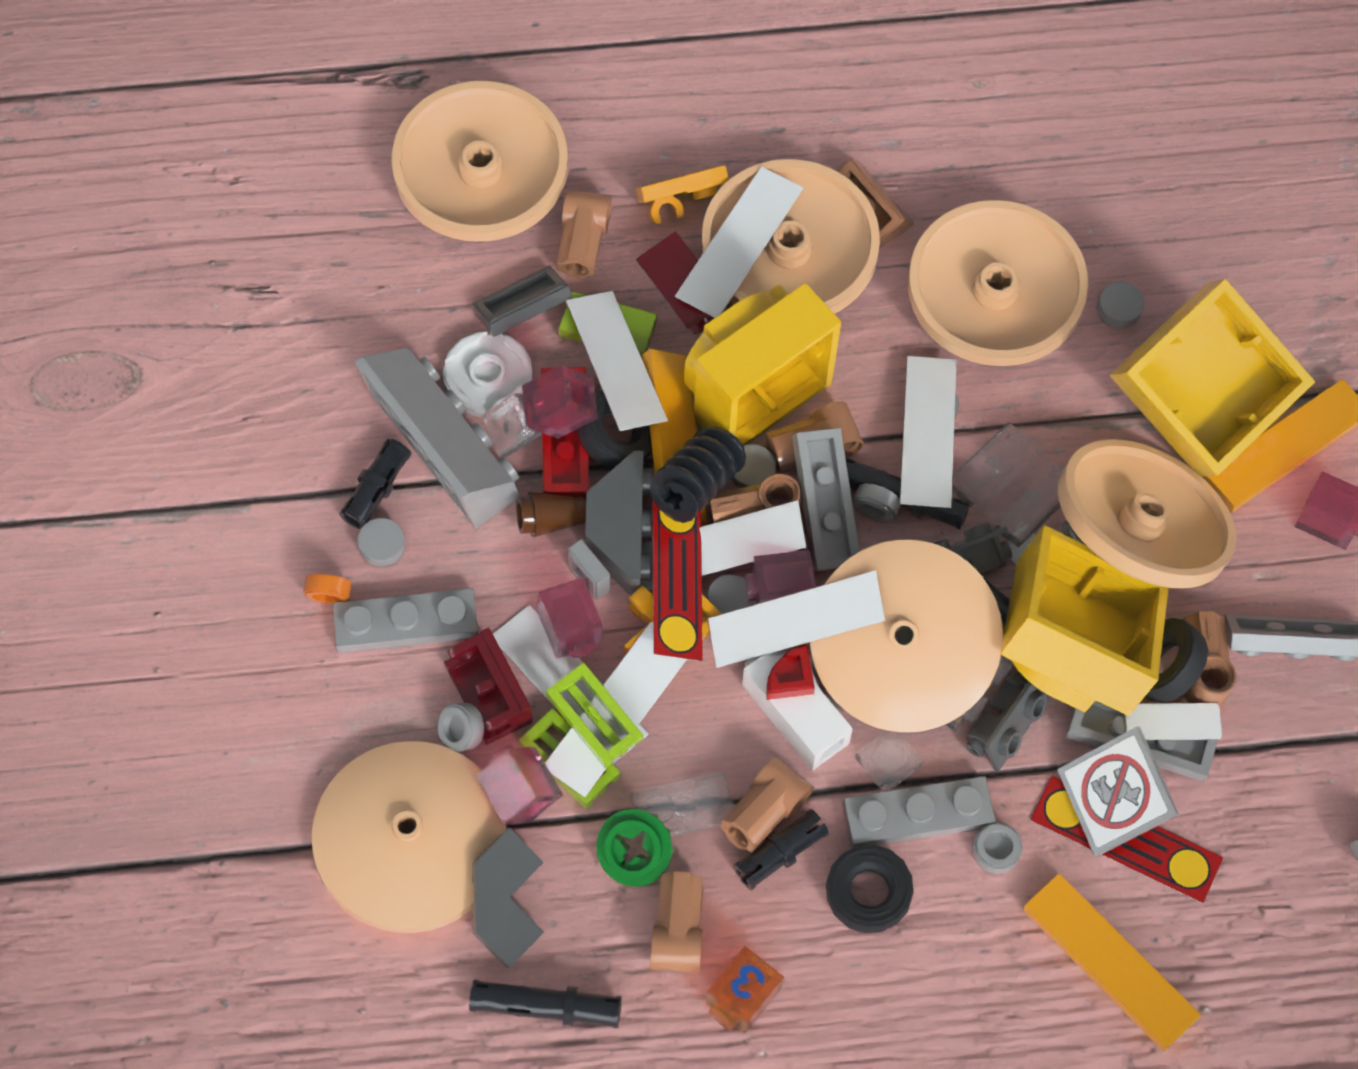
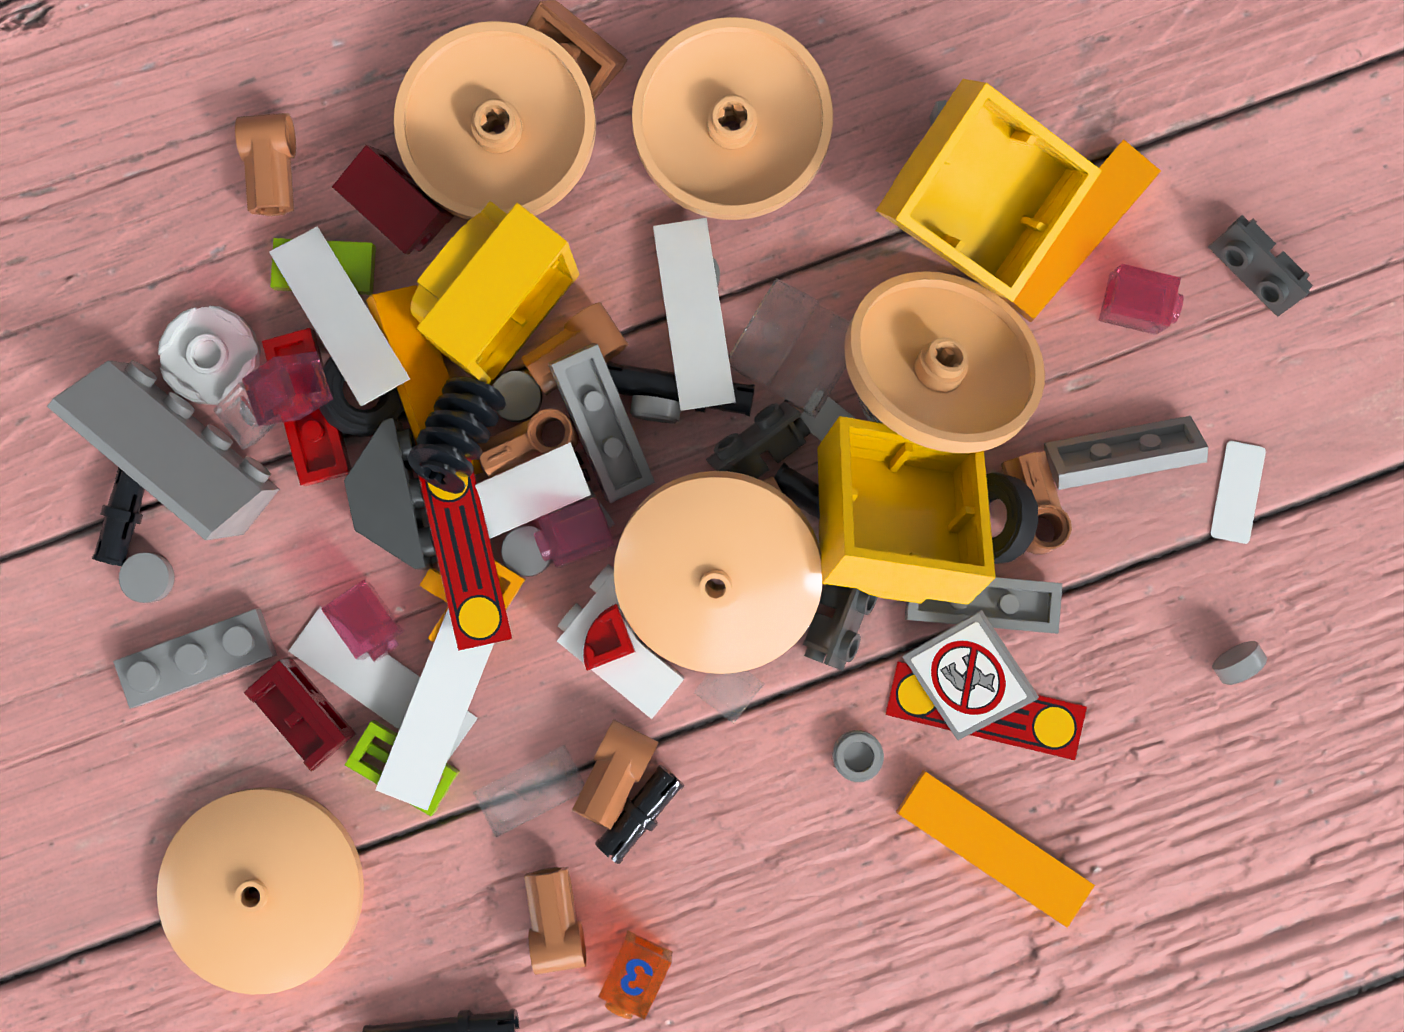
camera: 10 degrees left, 20 degrees up
(327, 588) = (102, 648): orange tile -> none
(460, 727) = (280, 766): light grey tile -> none
(480, 161) = (97, 81): light nougat dish -> none
(496, 917) = (371, 961): dark grey tile -> none
(518, 784) = (354, 818): clear pink brick -> none
(522, 300) = (222, 262): dark grey tile -> none
(548, 513) = (312, 504): reddish brown cone -> none
(586, 565) = (369, 560): light grey tile -> none
(613, 849) = (469, 856): green gear -> none
(619, 747) = (403, 744): lime tile -> none
(700, 183) = (381, 72): light orange plate -> none
(739, 242) = (439, 141): white sticker -> none
(796, 619) = (600, 581): white sticker -> none
(859, 916) = (745, 863): black tyre -> none
(918, 812) = (771, 738): light grey plate -> none
(1120, 305) = (870, 106): light grey tile -> none
(1176, 721) = (1021, 582): white sticker -> none

